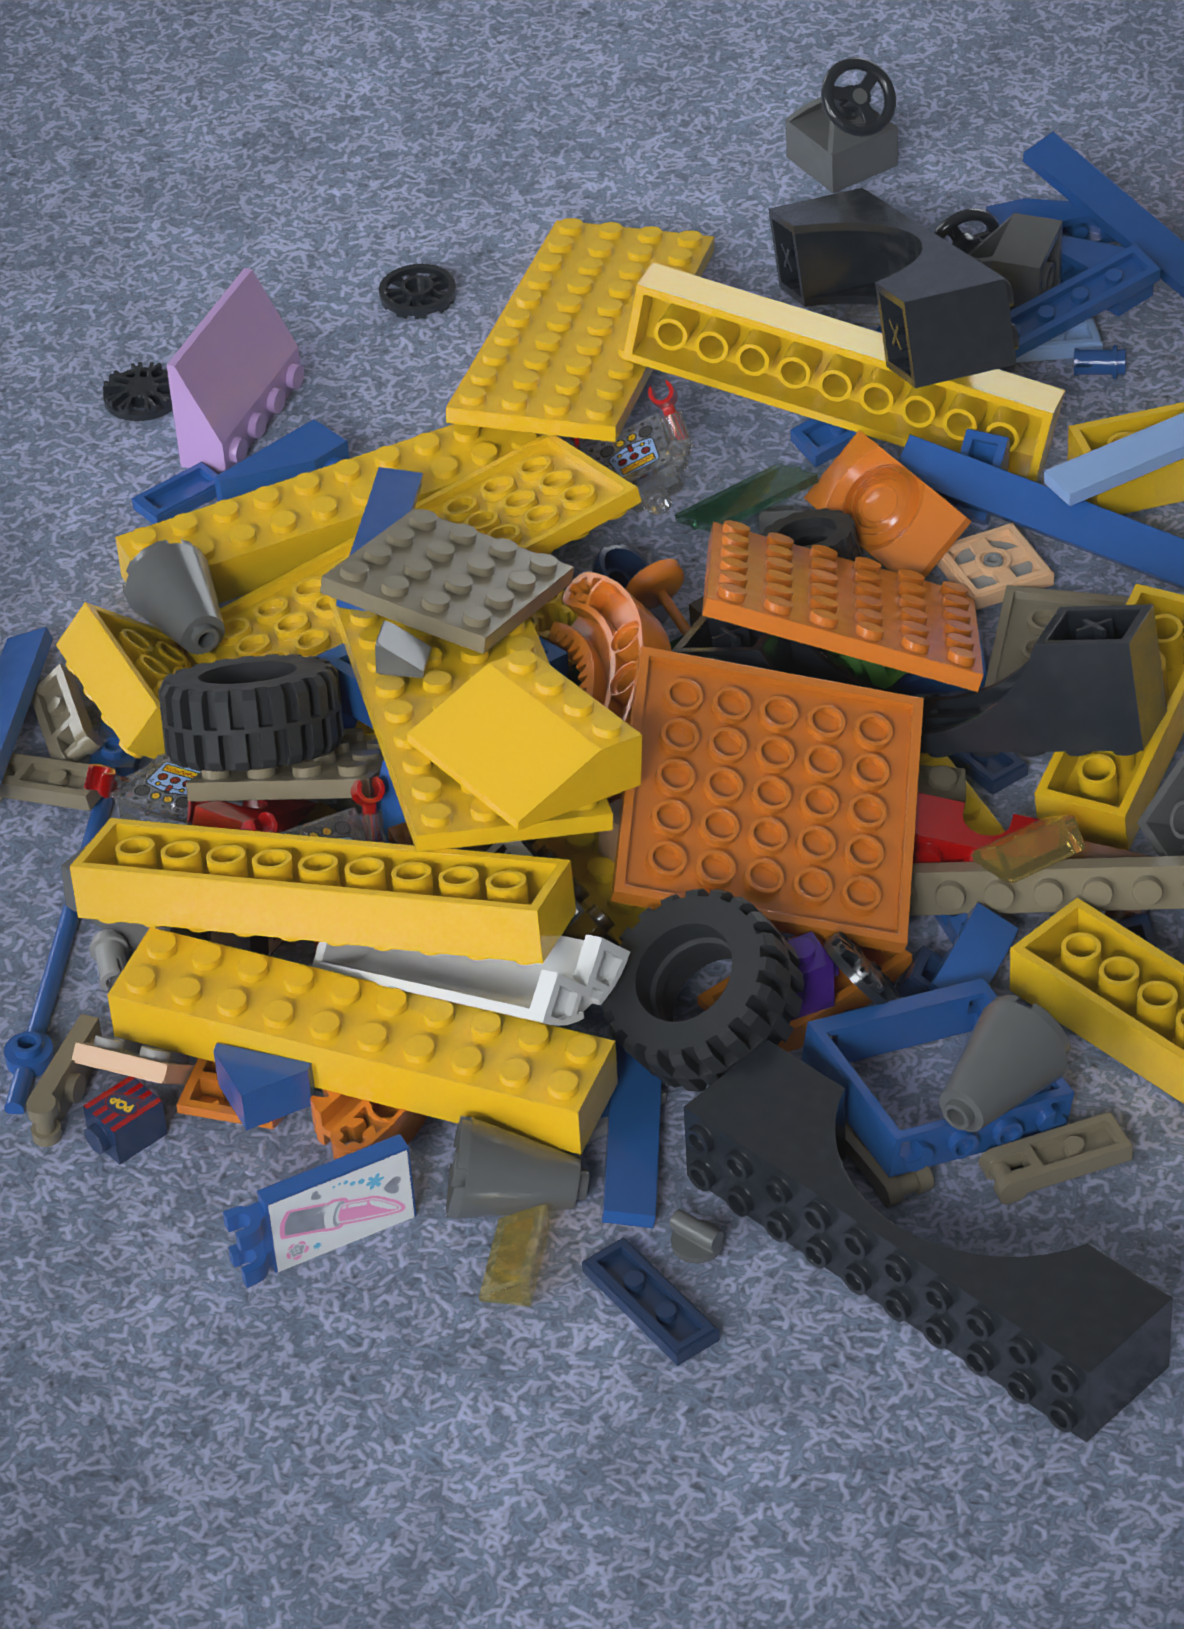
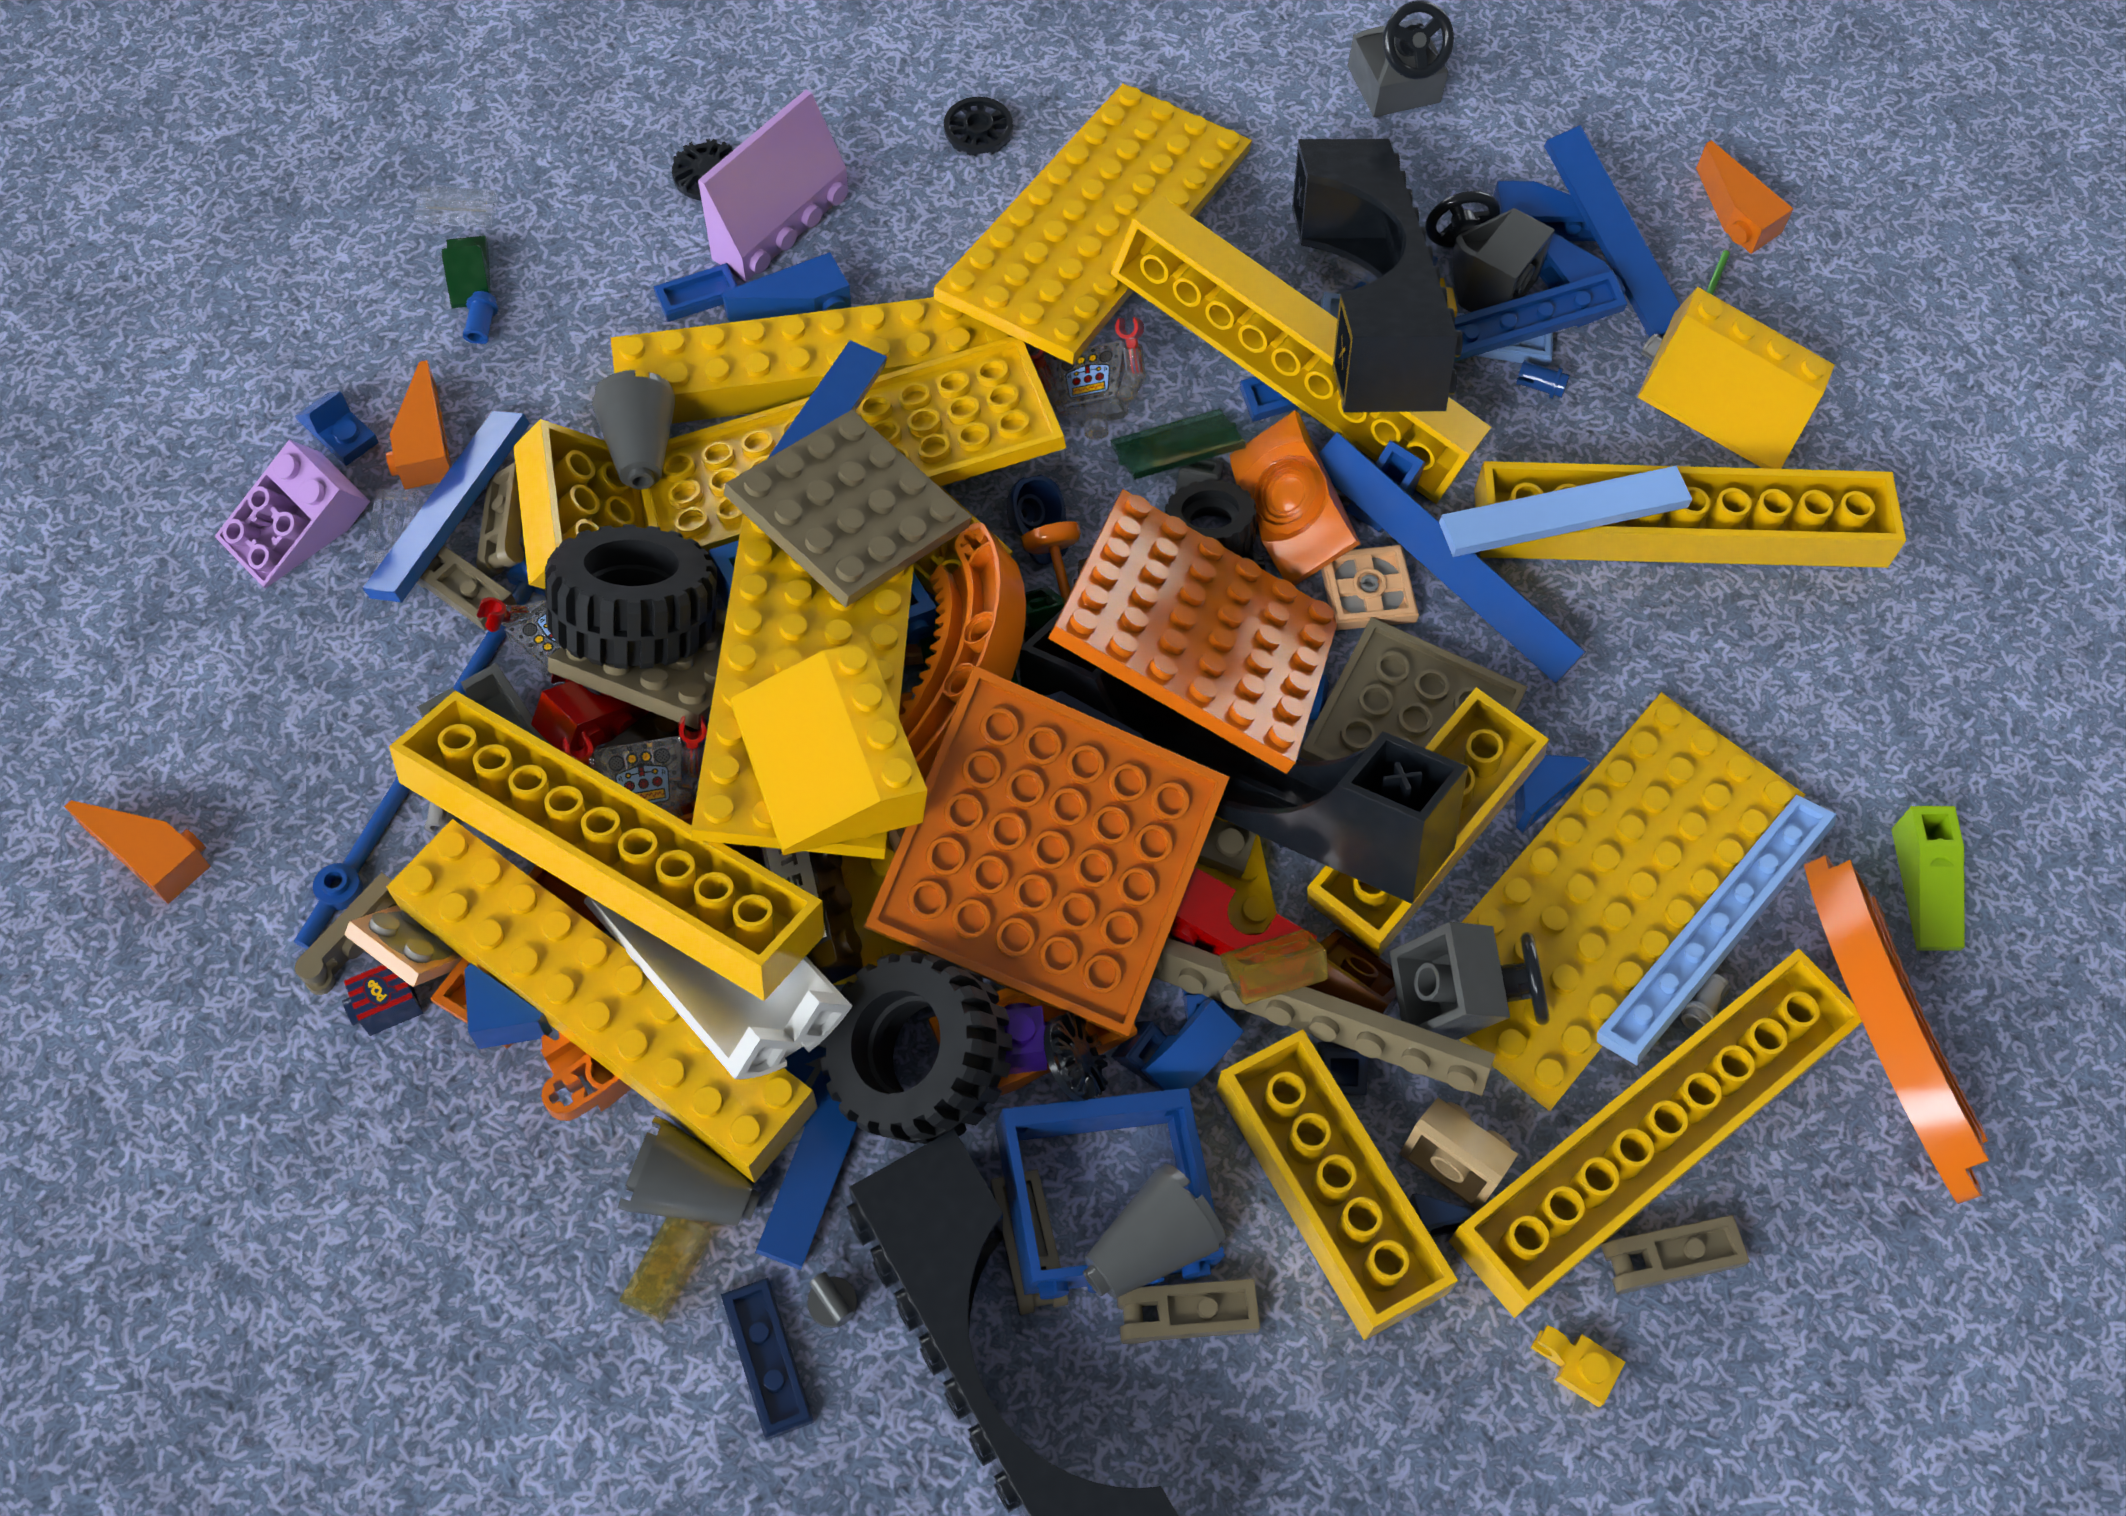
camera: 10 degrees right, 20 degrees up
(322, 1209) = (499, 1176): tile -> none
(400, 652) = (767, 589): slope -> none

